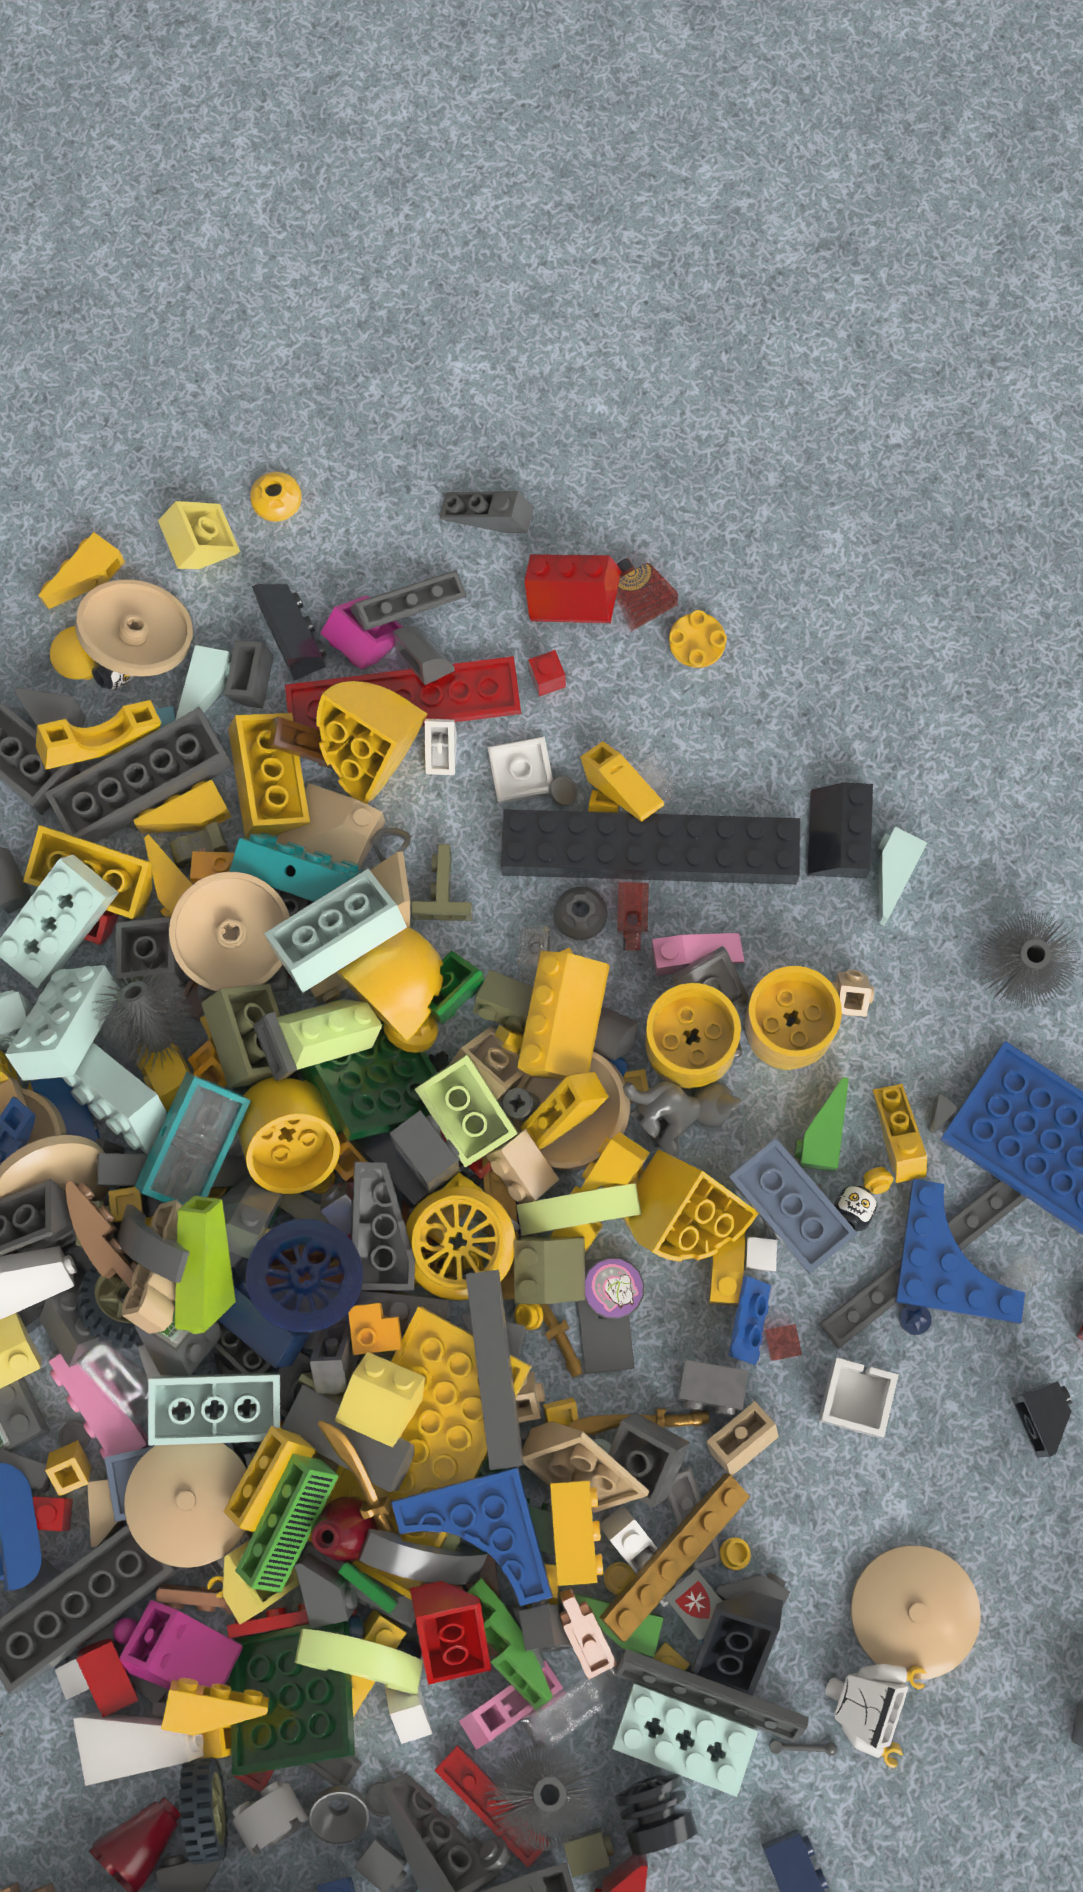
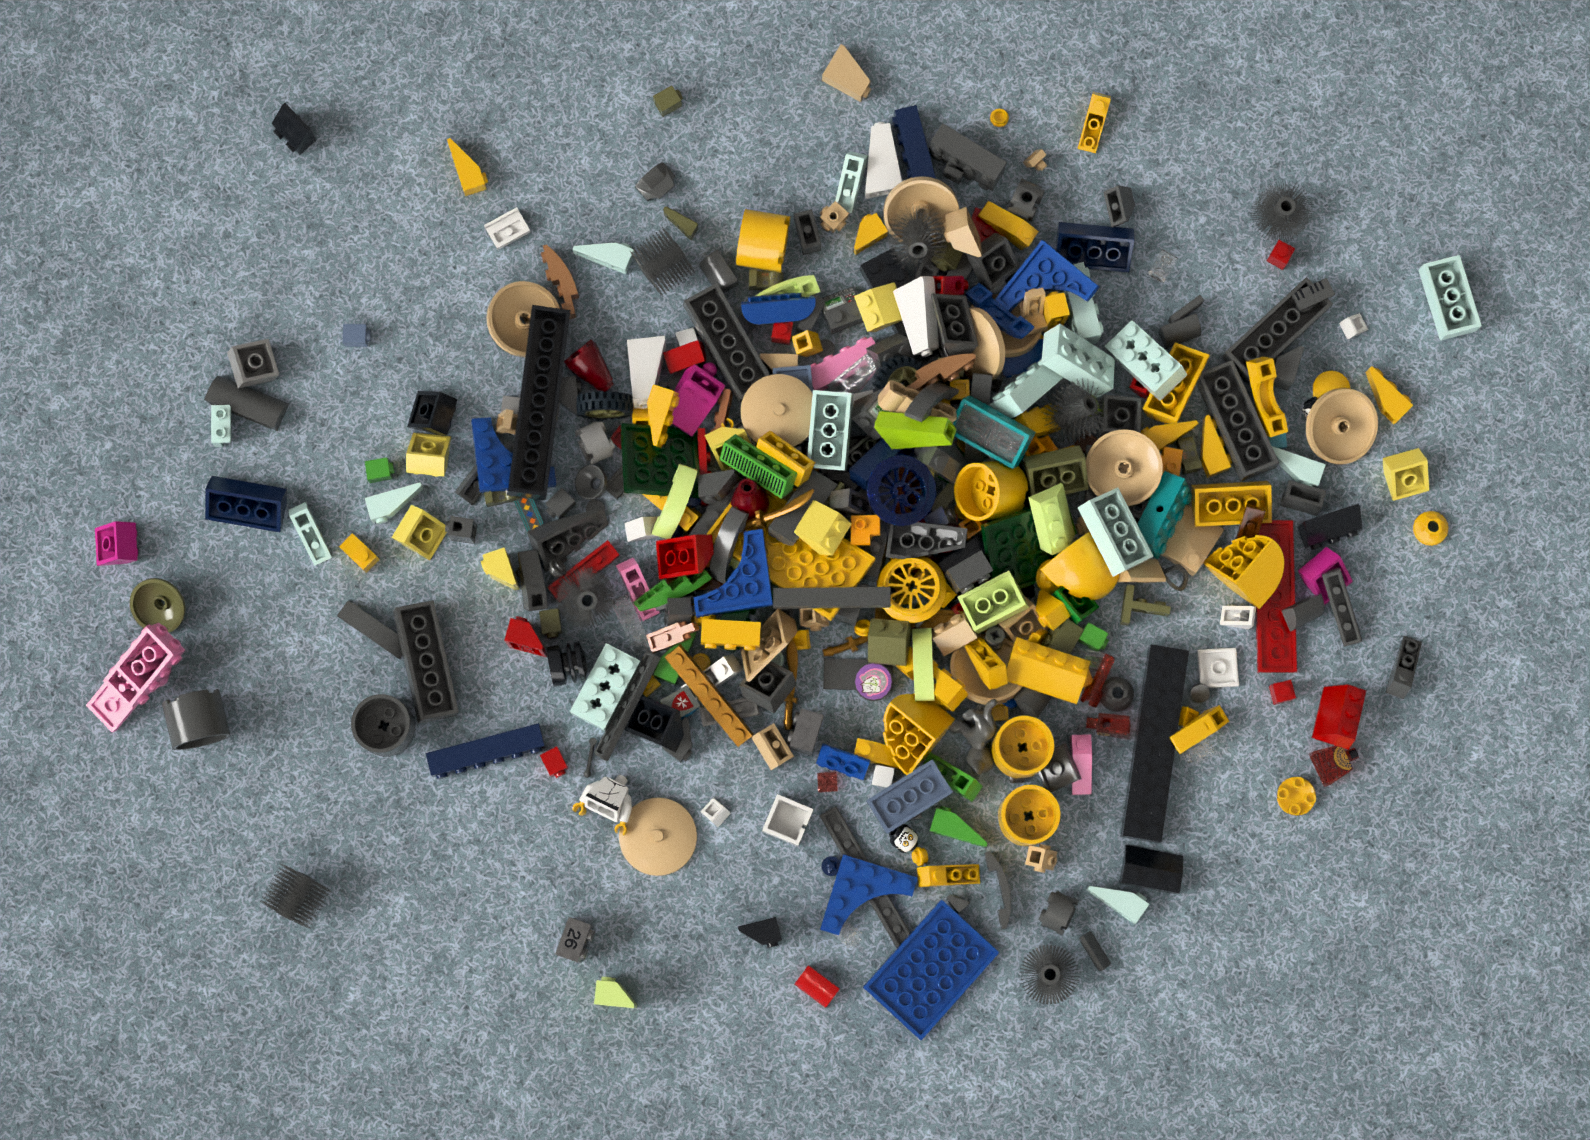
camera: 90 degrees right, 5 degrees up
(275, 1046) = (1044, 487): dark grey tile -> none
(369, 1587) = (715, 511): green tile -> none
(467, 1021) = (1050, 610): none -> yellow slope
(499, 953) = (1094, 637): none -> bright green brick
(581, 944) = (1093, 692): none -> clear red piece
(734, 1553) = (705, 733): yellow plate -> none
(748, 1140) = (957, 780): none -> bright green slope
(823, 1810) = (554, 762): none -> red brick
(859, 1520) = (715, 812): none -> white slope
(931, 957) = (1058, 912): none -> dark grey brick
(943, 1040) = (993, 865): none -> dark grey slope
(976, 900) = (1094, 951): none -> dark grey slope

